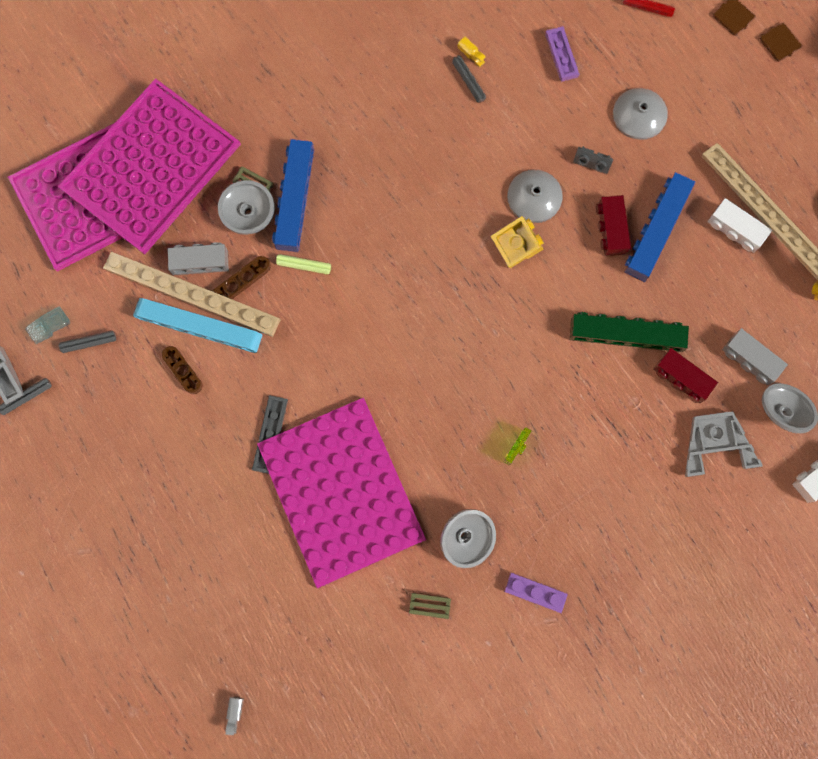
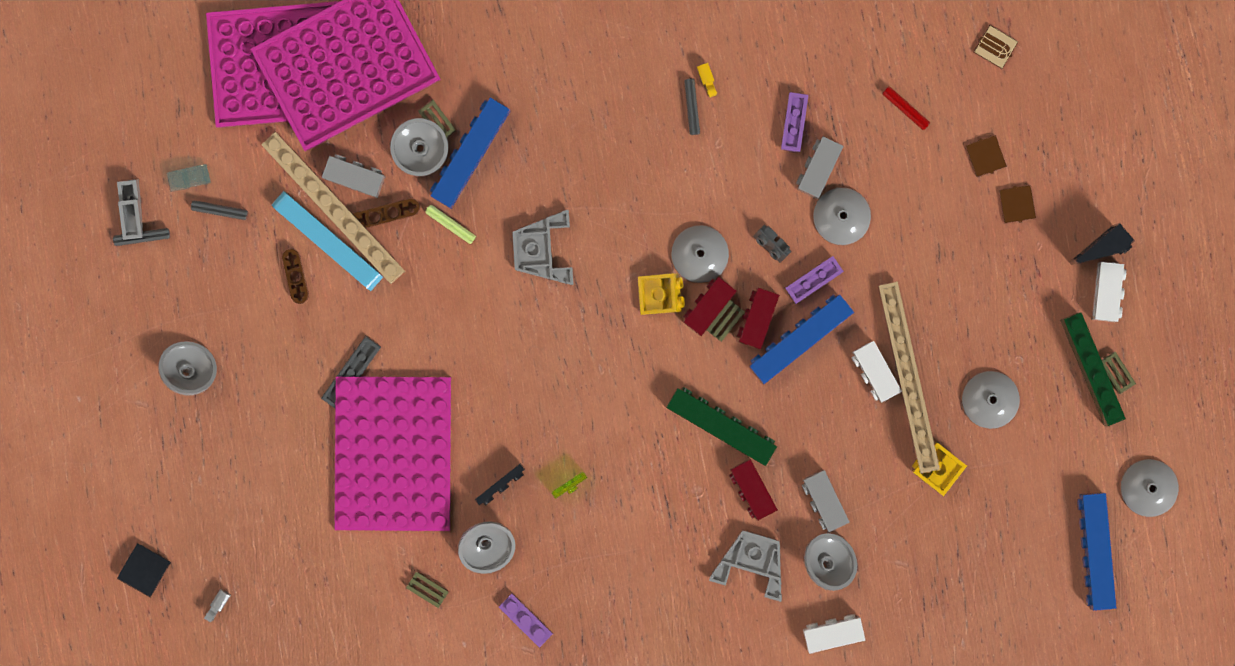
camera: 25 degrees right, 10 degrees up
(111, 488) = (188, 358): none -> light grey dish
(147, 713) = (143, 570): none -> black slope
(388, 253) = (533, 249): none -> light grey wing
(454, 475) = (500, 485): none -> black plate
(565, 234) = (708, 306): none -> dark red brick
(588, 227) = (715, 334): none -> olive tile
(602, 80) = (819, 167): none -> light grey brick
(644, 173) = (814, 279): none -> medium lavender plate

